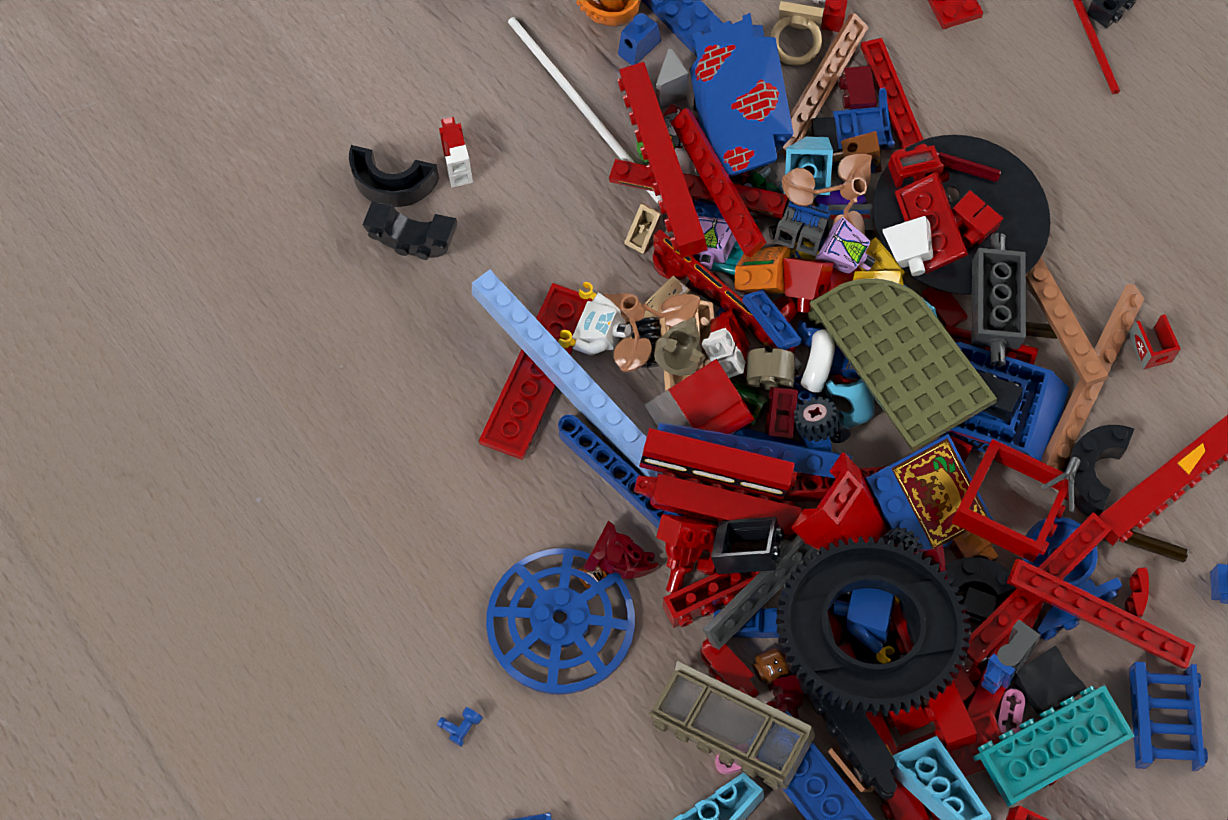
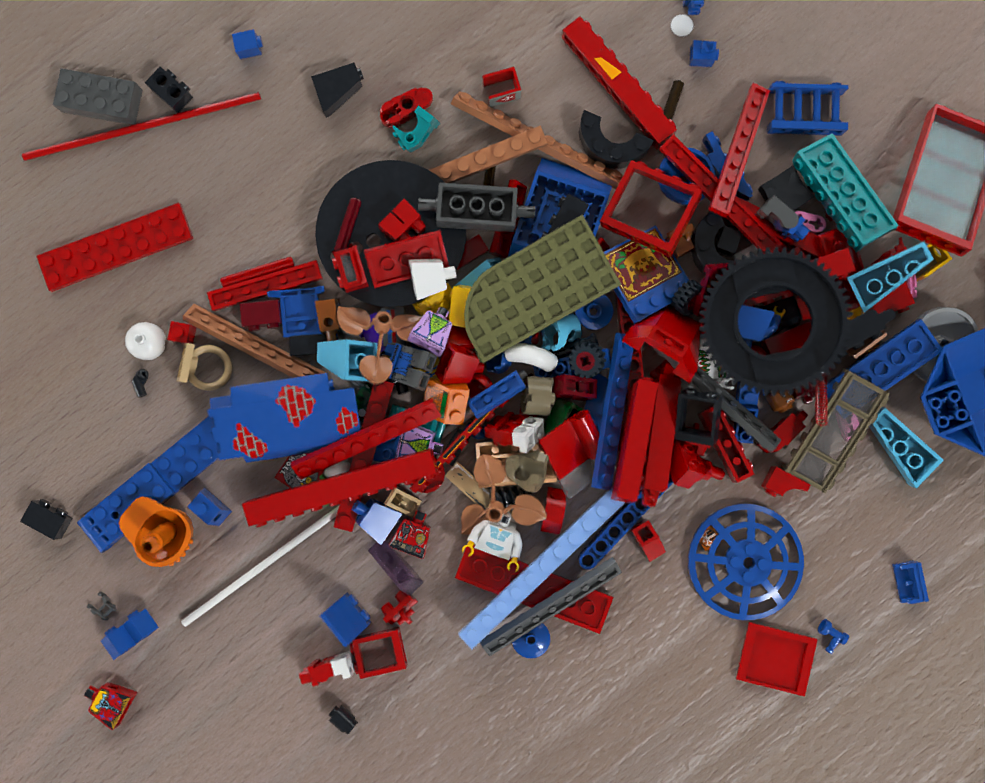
camera: 90 degrees left, 20 degrees up
(391, 189) = (367, 719): black brick -> none
(397, 164) = (342, 719): none -> black brick
(407, 235) = (411, 706): black brick -> none
(434, 654) = (776, 659): none -> red piece
(473, 224) = (399, 650): none -> red window
(476, 378) = (534, 649): none -> blue dish
(510, 164) = (346, 618): none -> blue slope
(516, 228) = (402, 611): none -> red hips
(516, 382) = (550, 607): none -> dark grey plate
(565, 223) = (396, 567): none -> clear purple slope
(592, 497) = (648, 539): none -> red slope
(602, 240) = (412, 536): none -> torso
(619, 554) = (696, 519): dark red piece -> none
(623, 199) = (376, 518): none -> torso
(629, 387) = (555, 511): none -> red brick
(661, 661) = (779, 482): none -> red arch
(672, 81) = (256, 478): light grey slope -> none
(779, 694) = (822, 406): none -> red piece
(883, 434) = (601, 319): none -> blue dish
(909, 89) = (257, 271): none -> red axle
(1069, 475) = (631, 162): dark grey plant -> none
(1093, 253) = (425, 126): none -> teal tile
(1109, 227) = (417, 97): none -> red piece
(1133, 166) = (337, 86): none -> black slope
(1138, 600) = (720, 121): red slope -> none
(1175, 76) = (247, 44): none -> blue brick

